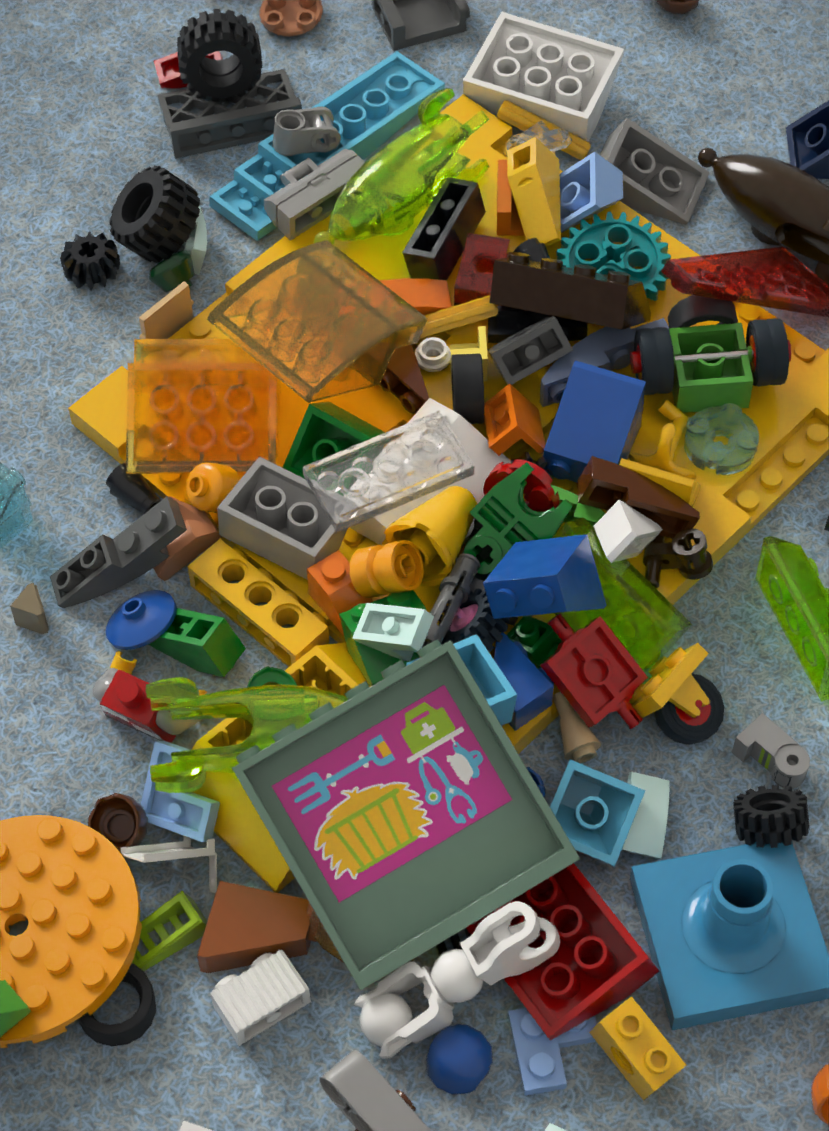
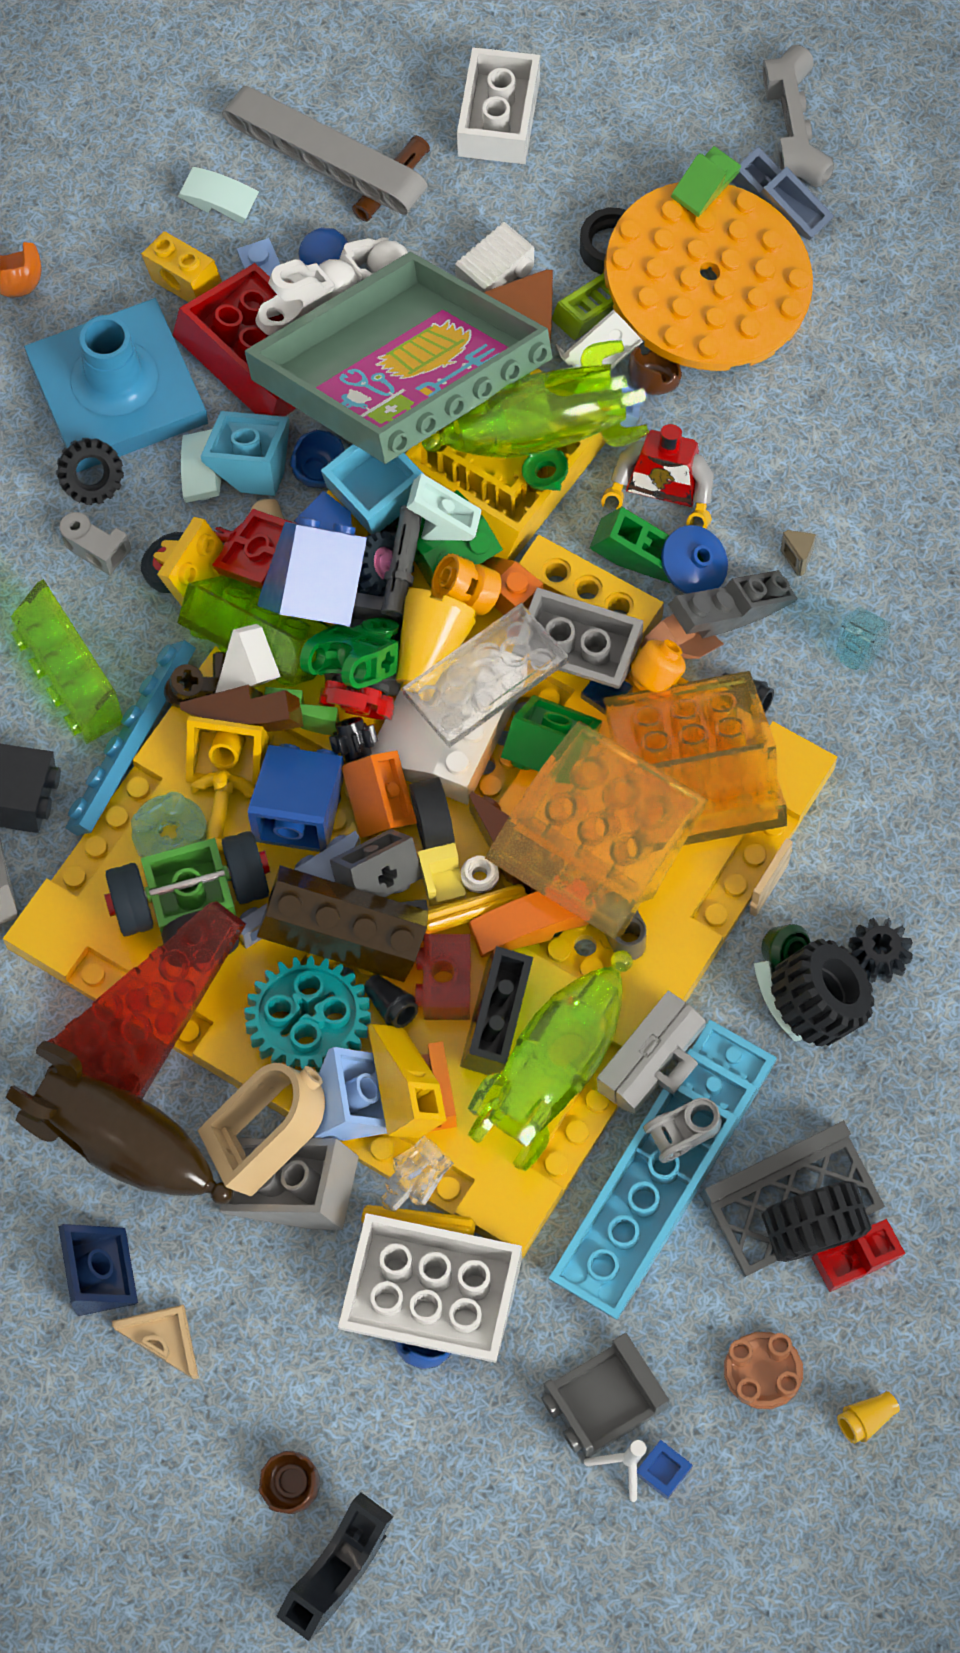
camera: 170 degrees right, 10 degrees up
(693, 180) = (303, 1120): none -> tan window
(742, 554) = (123, 748): none -> dark azure plate
(767, 102) = (164, 1335): none -> tan tile

